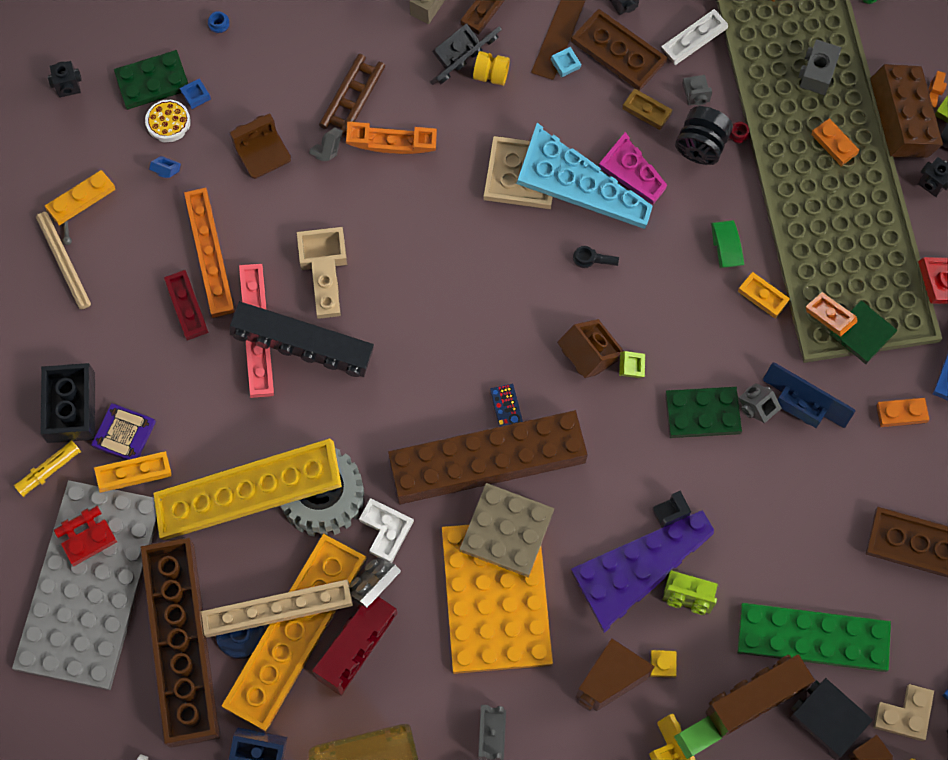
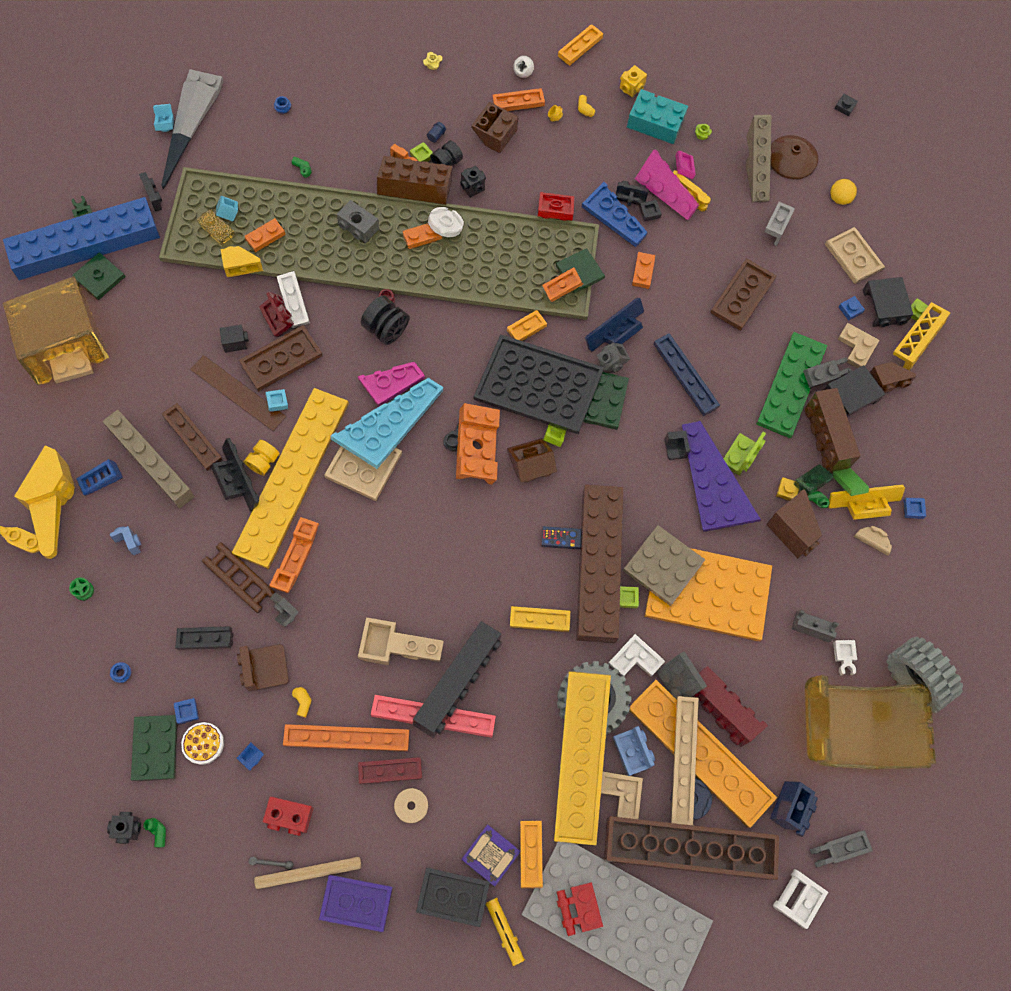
camera: 80 degrees left, 0 degrees up
(42, 314) = (356, 903): none -> dark purple plate
(72, 110) = (157, 829): none -> green arm
(80, 197) = (251, 842): light orange plate -> none
(114, 221) = (287, 815): none -> red brick
(162, 345) = (418, 812): none -> tan piece
(230, 557) = (628, 791): none -> tan plate
(238, 199) = (303, 699): none -> yellow arm
(275, 552) = (634, 751): none -> medium blue bracket
(276, 84) = (204, 638): none -> black hinge
(399, 410) = (540, 619): none -> yellow plate
(457, 501) = (629, 597): none -> lime plate
(483, 107) = (290, 479): none -> yellow plate
(612, 279) = (477, 425): none -> orange piece
(647, 109) = (342, 354): pearl gold plate -> none
(665, 703) = (819, 499): none -> green arm
(669, 26) = (276, 314): none -> dark red bracket
(684, 689) = (813, 479): none -> clear green plate
(691, 328) = (539, 384): none -> black plate
(697, 90) = (338, 314): dark grey bracket -> none
(728, 244) = (477, 335): green slope -> none
(773, 499) = (686, 374): none -> dark blue plate
(844, 673) = (825, 372): none -> dark grey hinge
(861, 160) = (445, 222): none -> white tile

